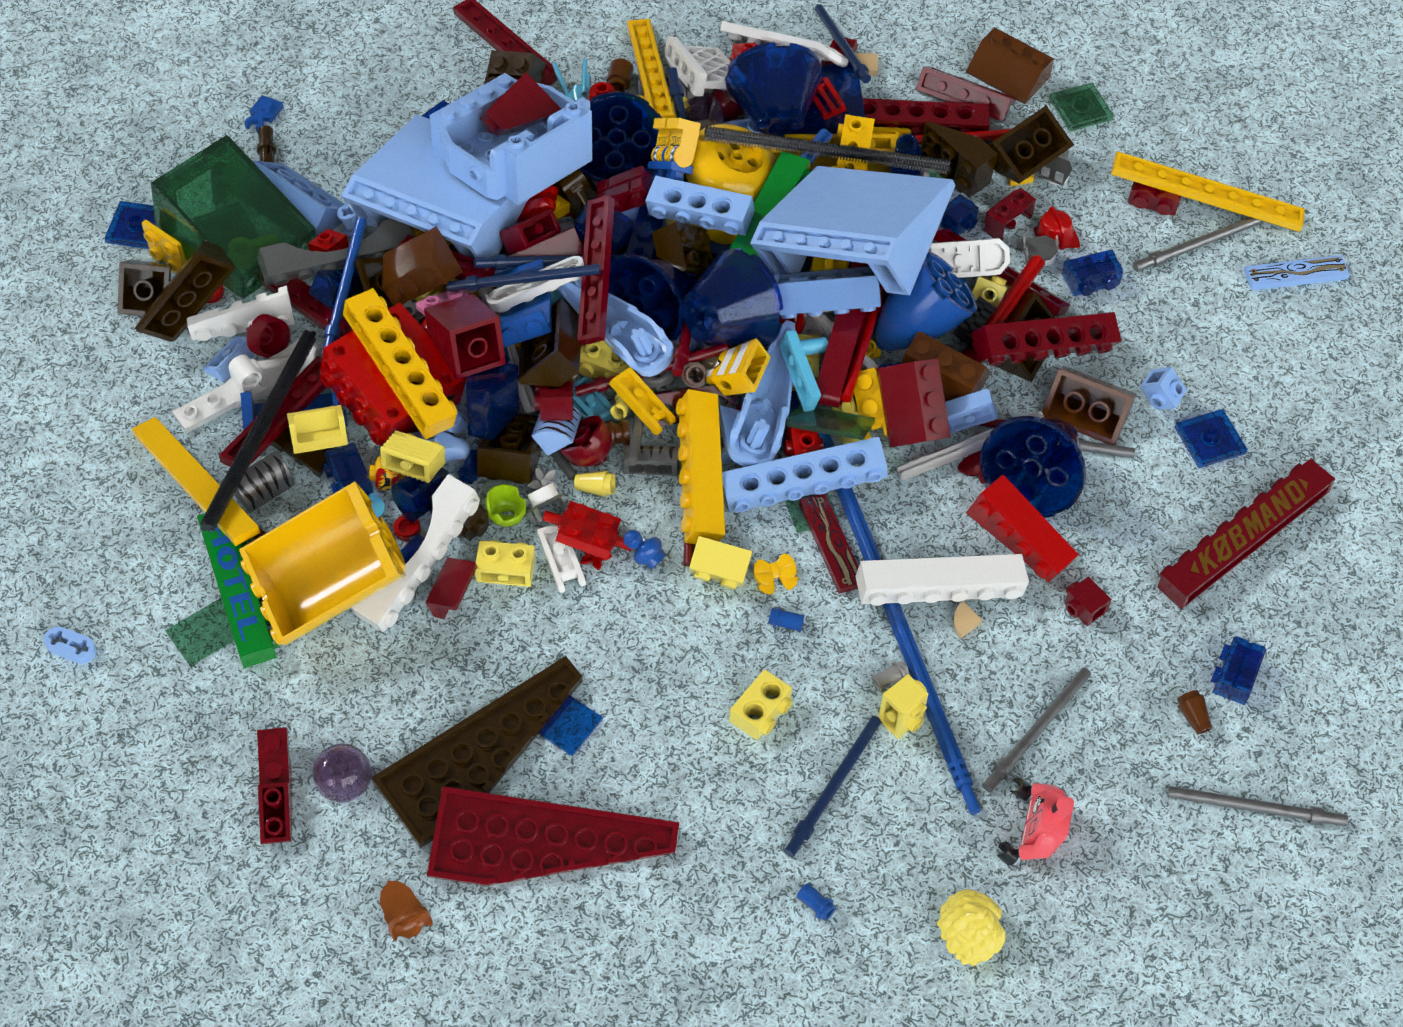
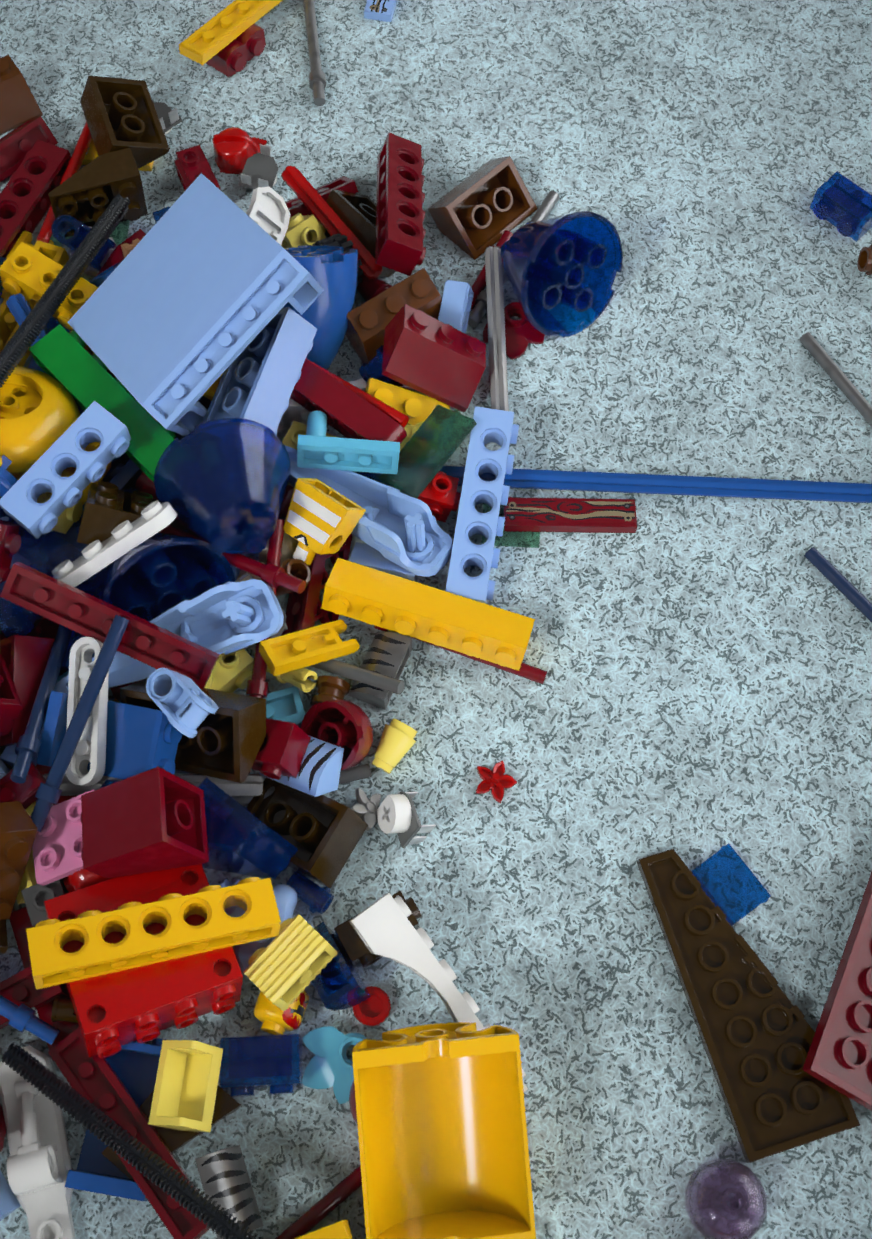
camera: 70 degrees left, 10 degrees up
(411, 547) = (411, 1006): clear blue pin -> none
(450, 586) = (498, 970): dark red panel -> none
(503, 499) = (383, 855): lime hair -> none
(505, 563) = (477, 892): light yellow brick -> none
(553, 318) = (183, 703): none -> light blue piece
(560, 558) = (487, 821): white hinge -> none
(587, 529) = (466, 775): red plate -> none
(648, 551) = (517, 716): blue animal -> none
(662, 253) = (123, 539): none -> white plate
(720, 562) = (566, 639): light yellow brick -> none
(756, 703) = (759, 665): light yellow brick -> none
(783, 569) = (588, 578): yellow piece -> none
(786, 619) = (652, 603): blue pin -> none
(890, 675) = (762, 517): light grey pin -> none
(903, 706) = (821, 512): light yellow brick -> none
(941, 579) = (665, 423): white brick -> none
(965, 620) = (710, 422): tan tile -> none
(1022, 529) = (621, 324): red wedge -> none
(1081, 107) = (73, 62): clear green plate -> none
(1086, 601) = (728, 301): dark red brick -> none
(1092, 273) = (313, 138): clear blue brick -> none
(1163, 388) = (494, 134): light blue brick -> none
(1210, 438) = (561, 124): clear blue plate -> none
(1245, 533) = (692, 140): dark red brick -> none

